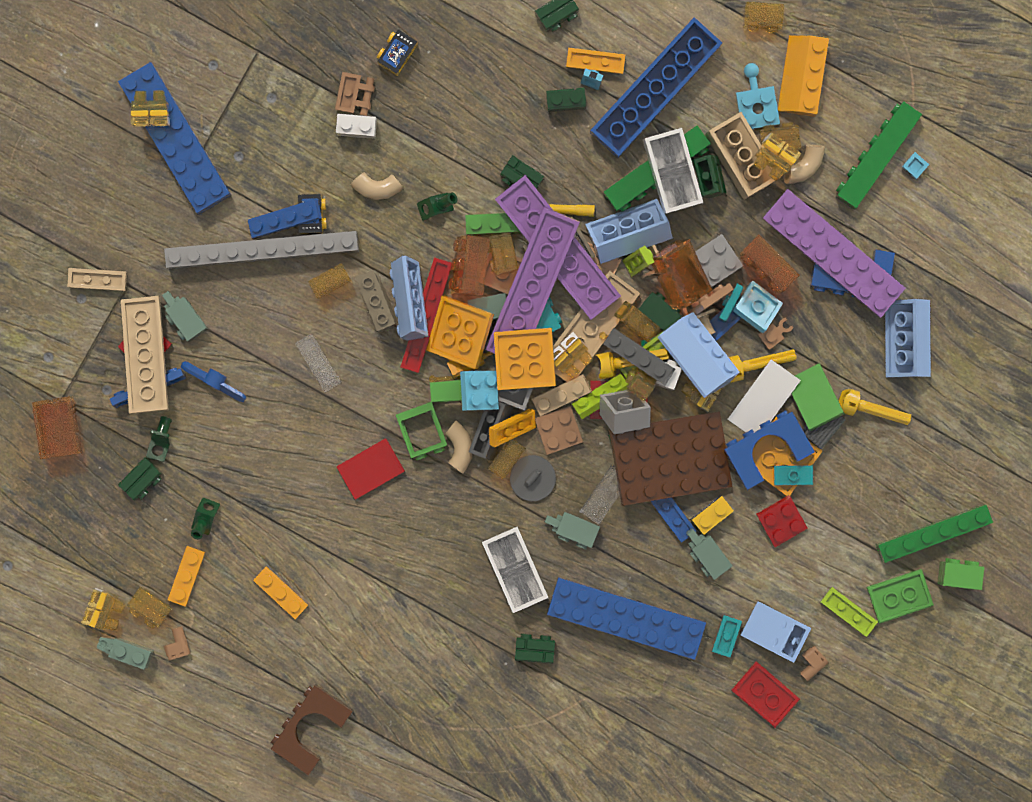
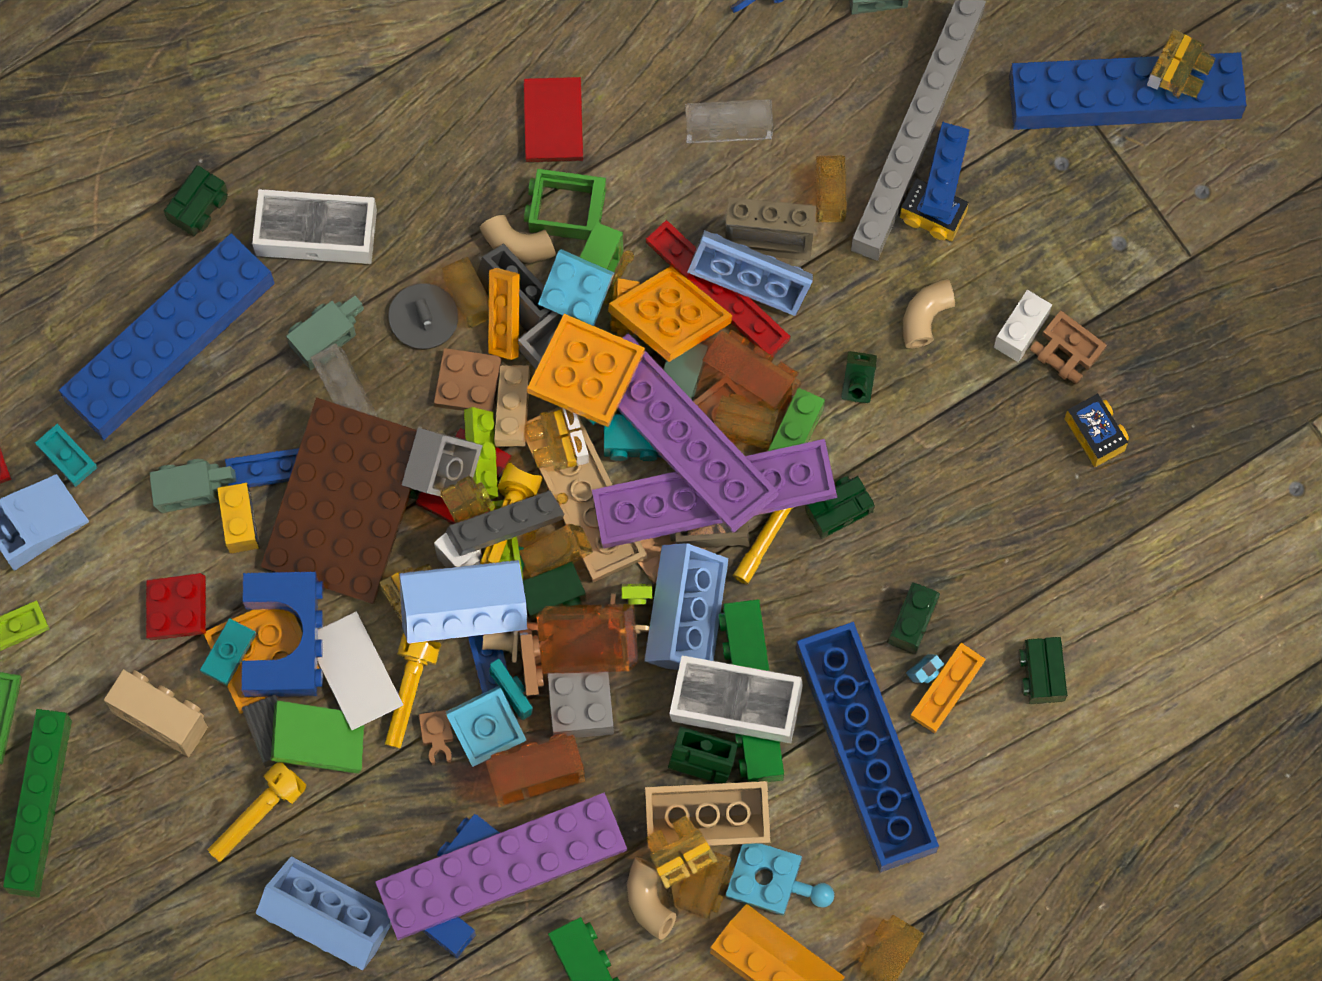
camera: 115 degrees right, 15 degrees down
(849, 494) = (156, 712): none -> tan brick

